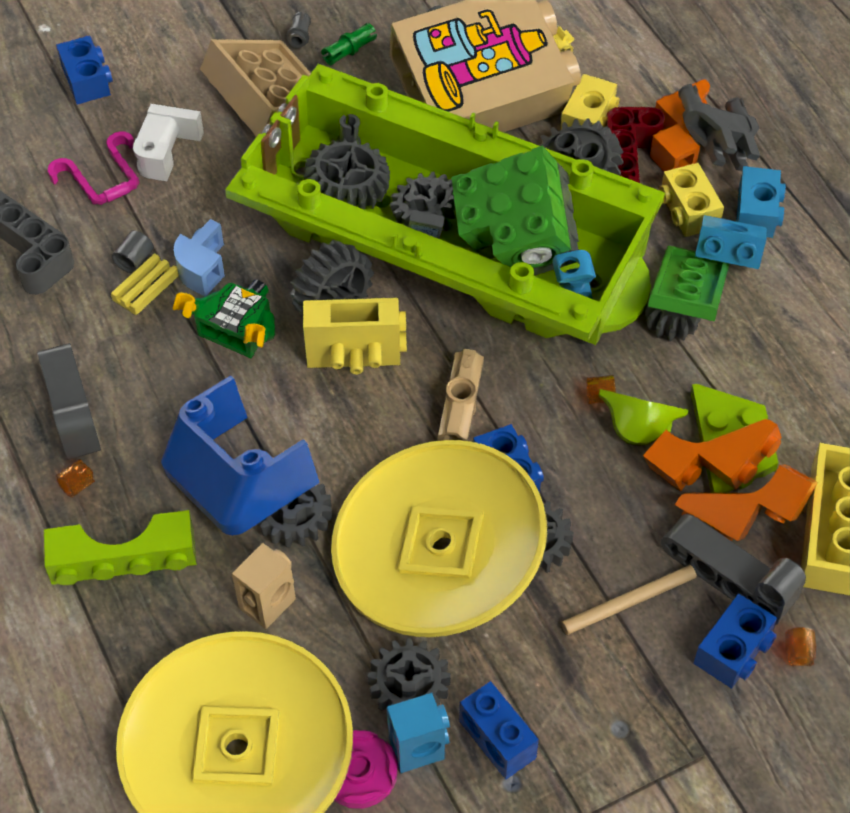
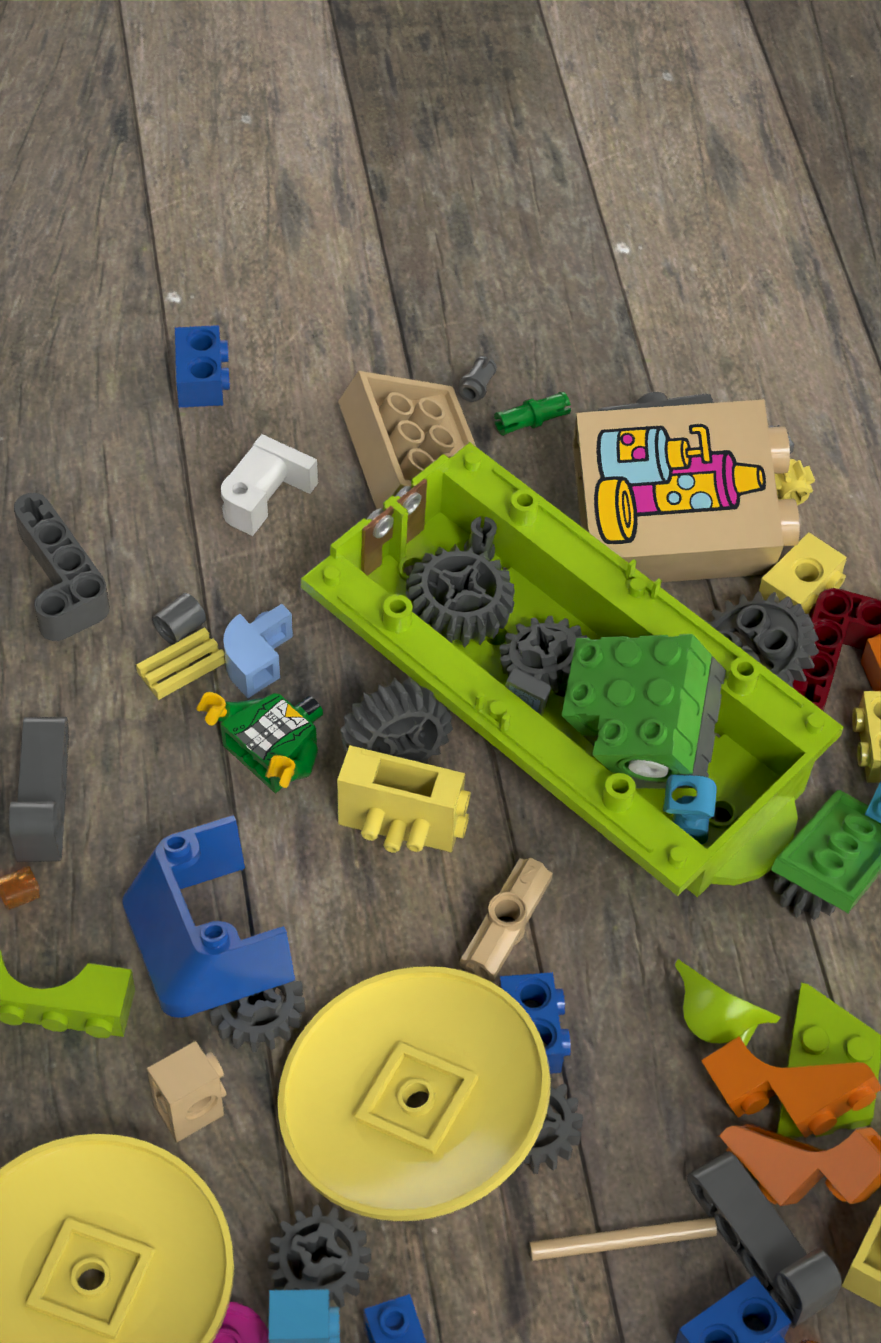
camera: 15 degrees right, 0 degrees up
(112, 193) = (181, 535): dark pink piece -> none
(594, 384) = (685, 950): clear orange hose -> none

